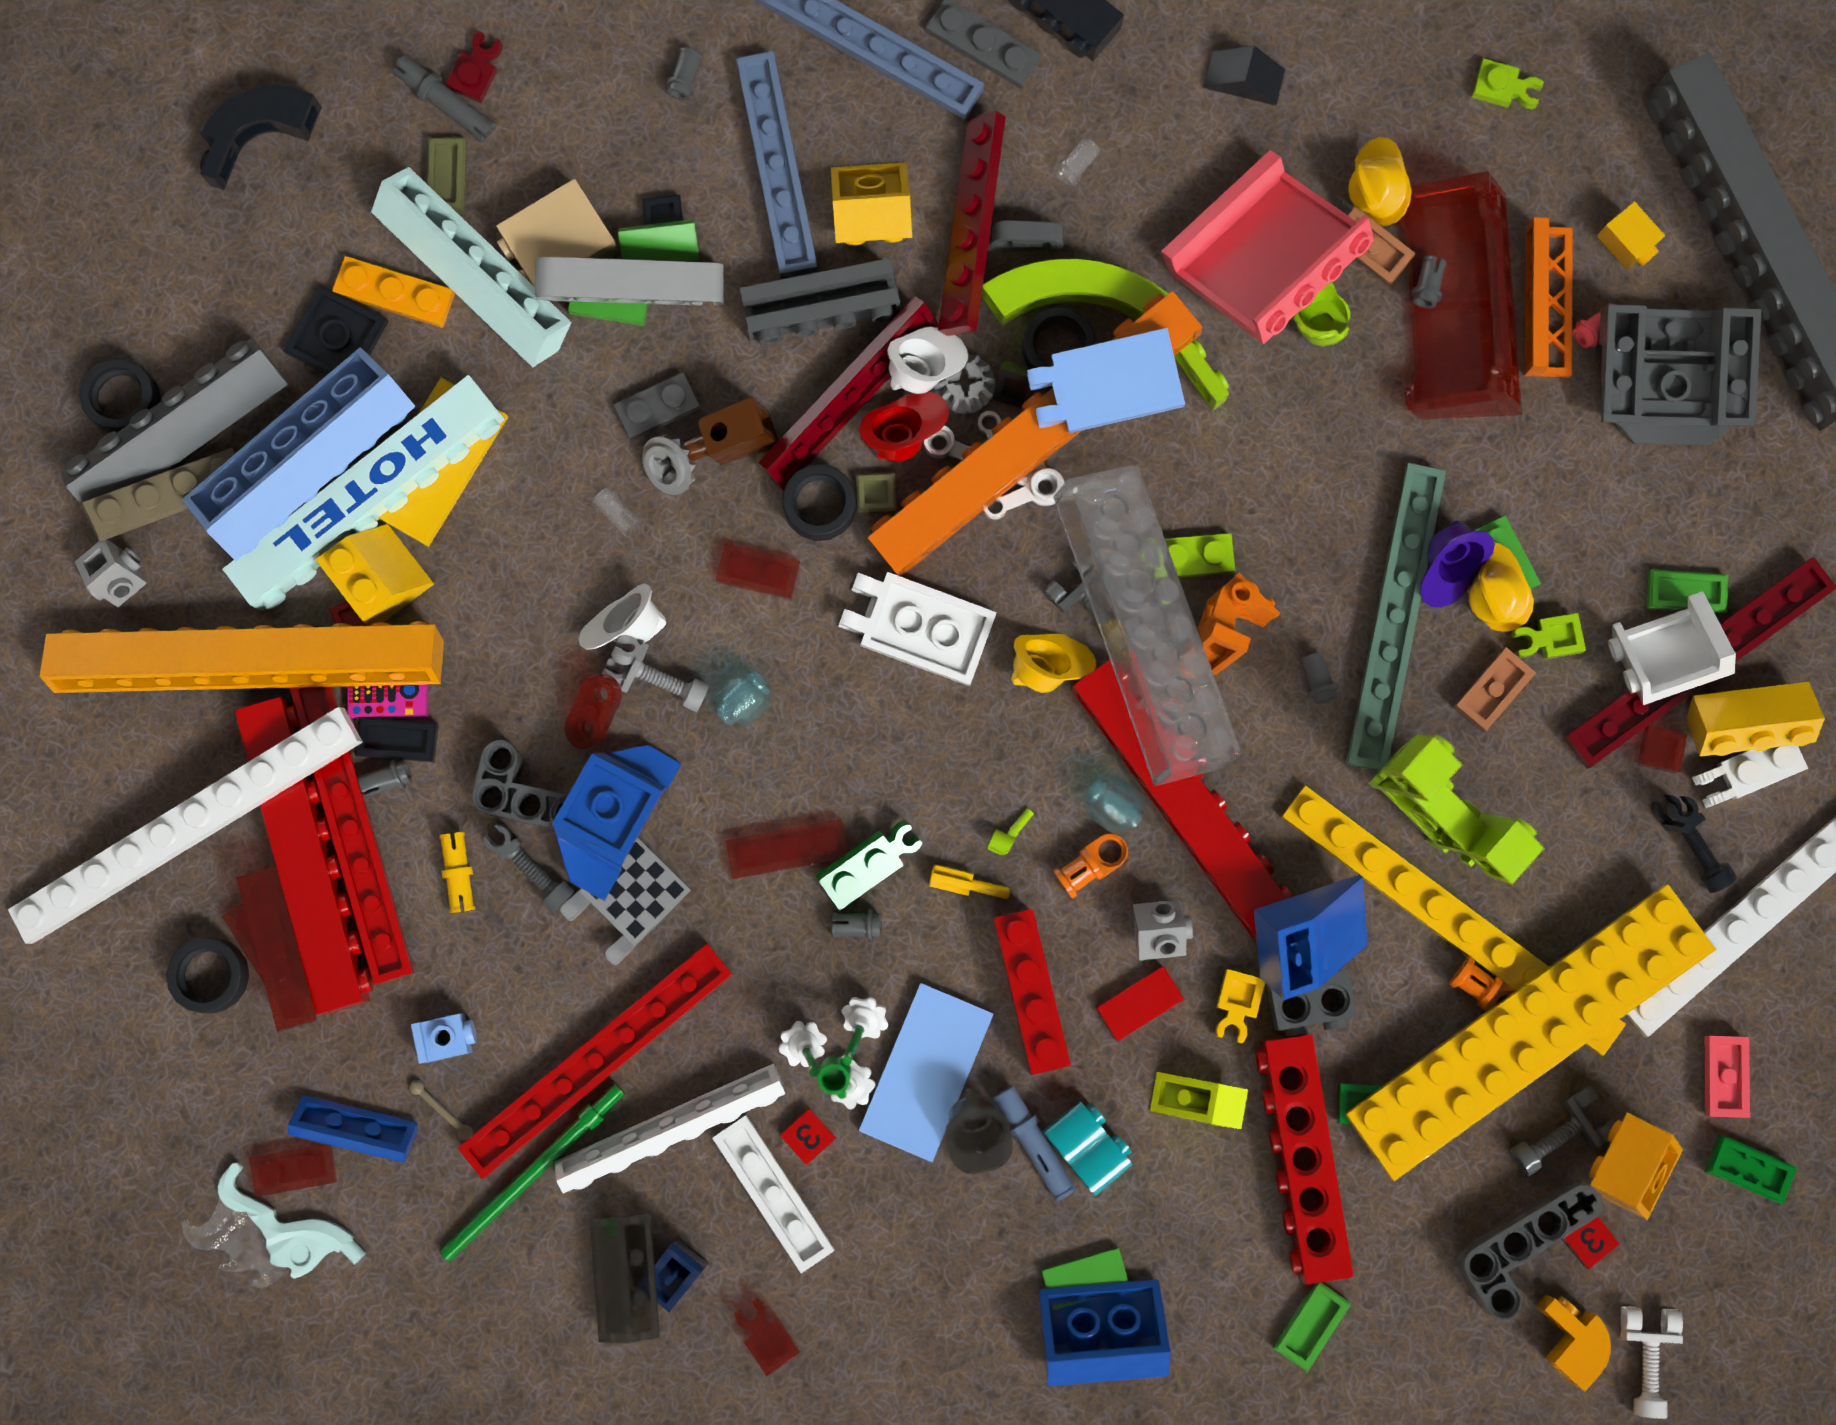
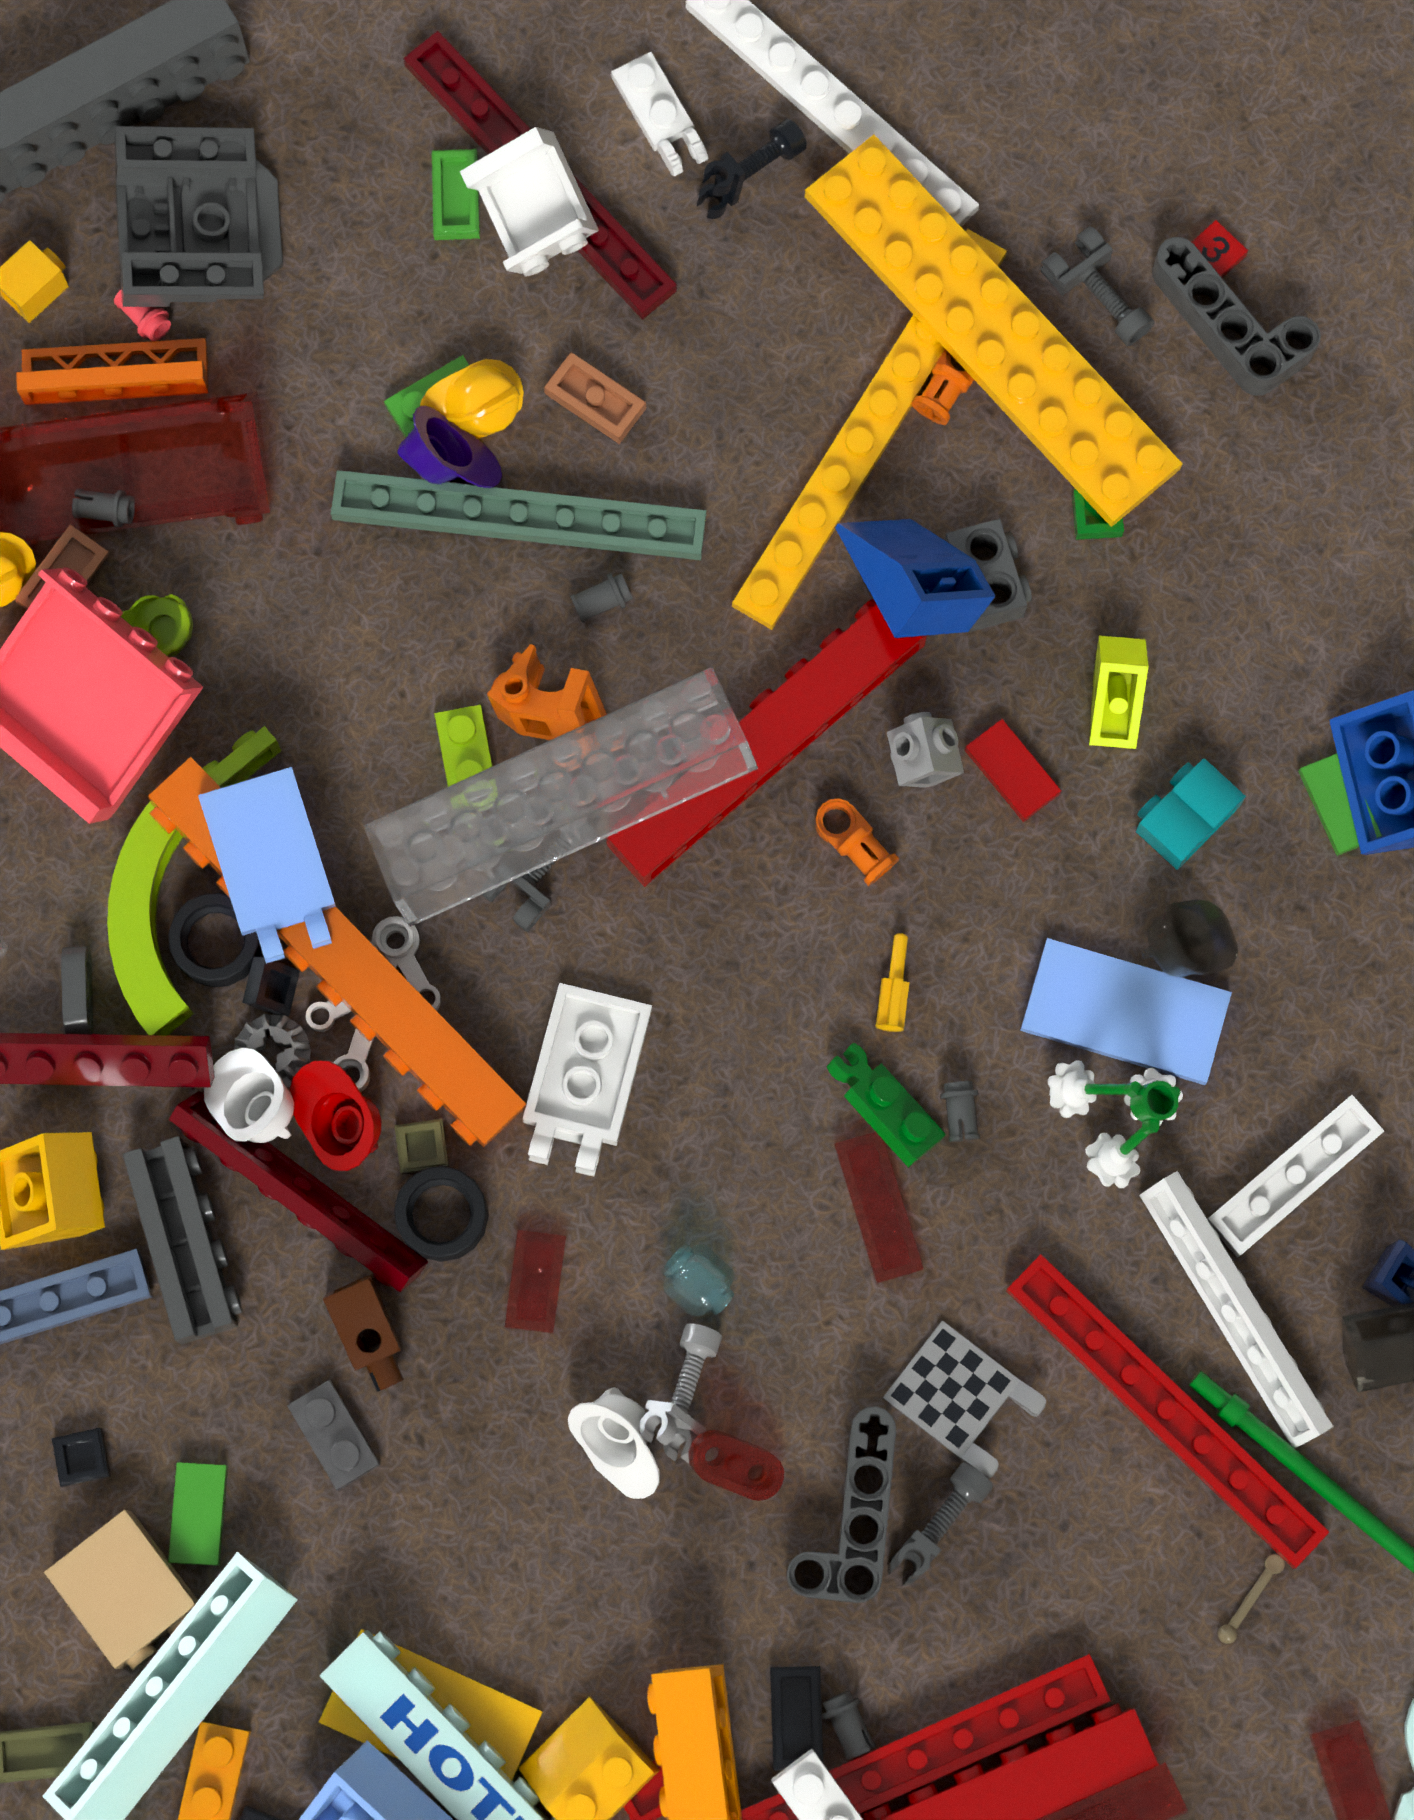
camera: 95 degrees left, 5 degrees down
(353, 1128) = (1290, 1704): blue plate -> none
(388, 701) = (750, 1735): tile -> none
(426, 1038) = (1158, 1622): light blue brick -> none
(457, 872) = (956, 1615): yellow pin -> none
(609, 812) = (863, 1423): blue piece -> none
(615, 510) = (474, 1470): clear pin -> none
(628, 281) = (177, 1484): light grey beam -> none
(657, 466) = (414, 1424): light grey gear -> none
(660, 242) = (120, 1456): bright green tile -> none
(808, 1136) = (1221, 1143): red tile -> none
(1002, 842) = (840, 946): lime hand -> none
(1025, 1128) = (1192, 875): sand blue pin -> none
(1031, 992) = (1017, 894): red brick -> none
(1049, 660) = (614, 909): yellow piece -> none
(1114, 804) = (780, 820): clear light blue head -> none
(1240, 997) = (991, 656): yellow plate -> none
(1311, 1325) = (1355, 546): bright green tile -> none
(1333, 1258) = (1277, 526): red brick -> none
(1421, 788) = (727, 457): lime wedge -> none
(1555, 636) = (524, 335): lime plate -> none
(1585, 1346) = (1335, 249): light orange brick -> none
(1635, 1165) = (1129, 204): light orange brick -> none
(1650, 1403) = (1300, 202): white bar -> none
(1662, 749) = (646, 209): clear red plate -> none
(1727, 1076) = (1012, 118): coral plate -> none
(1750, 1169) = (1112, 87): green plate -> none
(1754, 719) = (602, 110): yellow brick -> none

